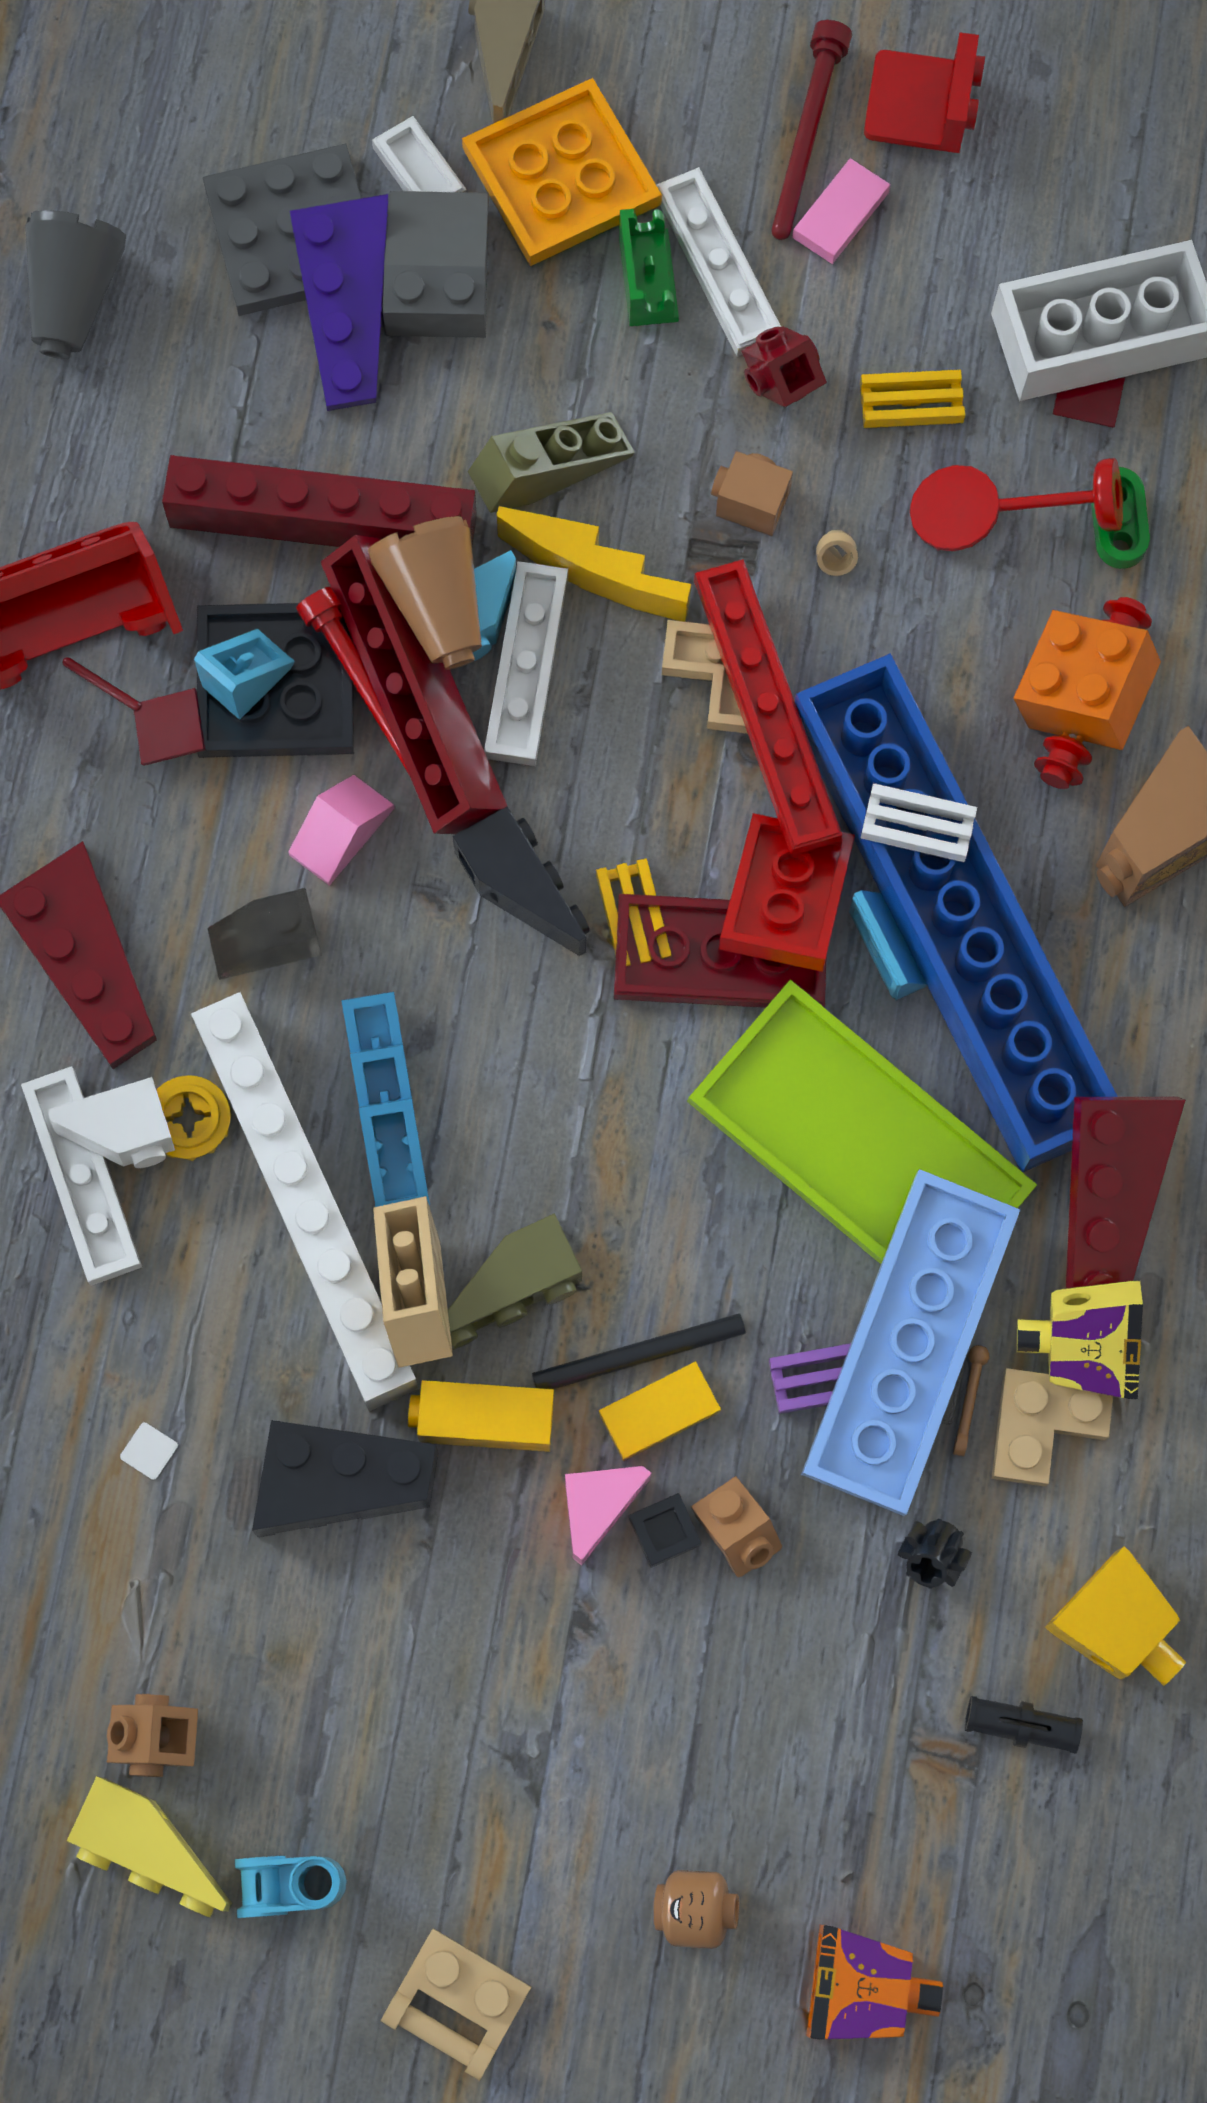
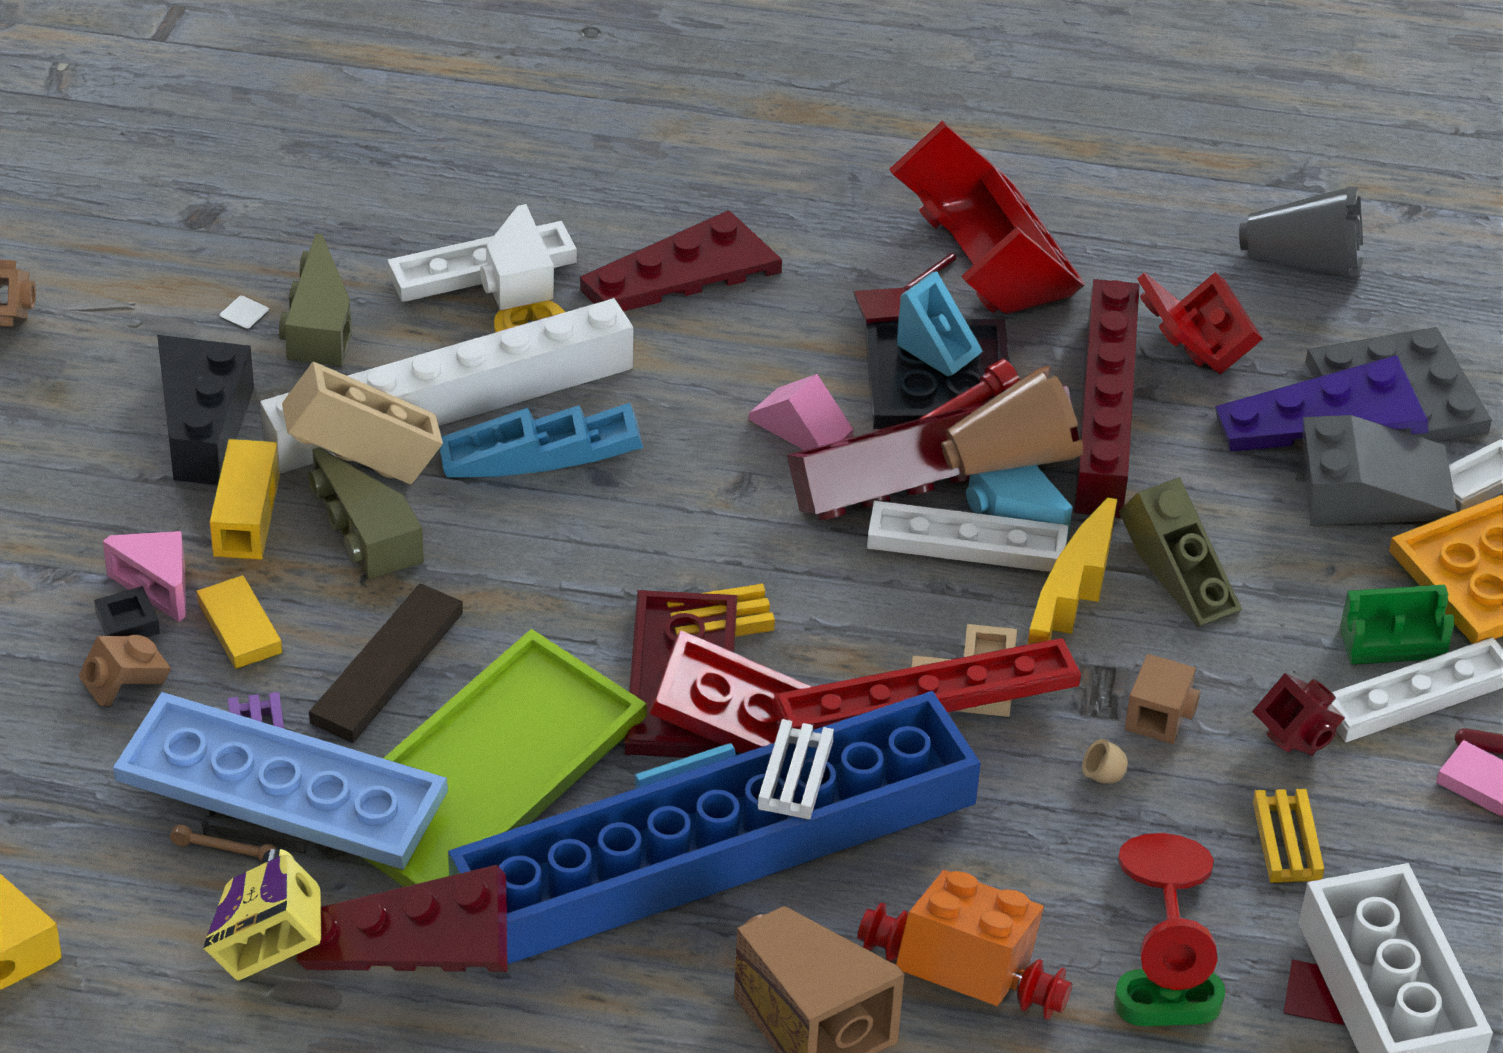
camera: 90 degrees right, 30 degrees down
(173, 1353) = (319, 312): none -> olive slope
(206, 401) = (1206, 321): none -> red bracket
(264, 935) = (698, 373): clear smoke slope -> none
(510, 875) = (750, 523): black slope -> none
(639, 1353) = (295, 611): black bar -> none
(713, 1251) = (385, 663): none -> dark brown tile
(934, 1553) = (75, 796): black gear -> none
(1029, 1417) = (185, 887): tan plate -> none

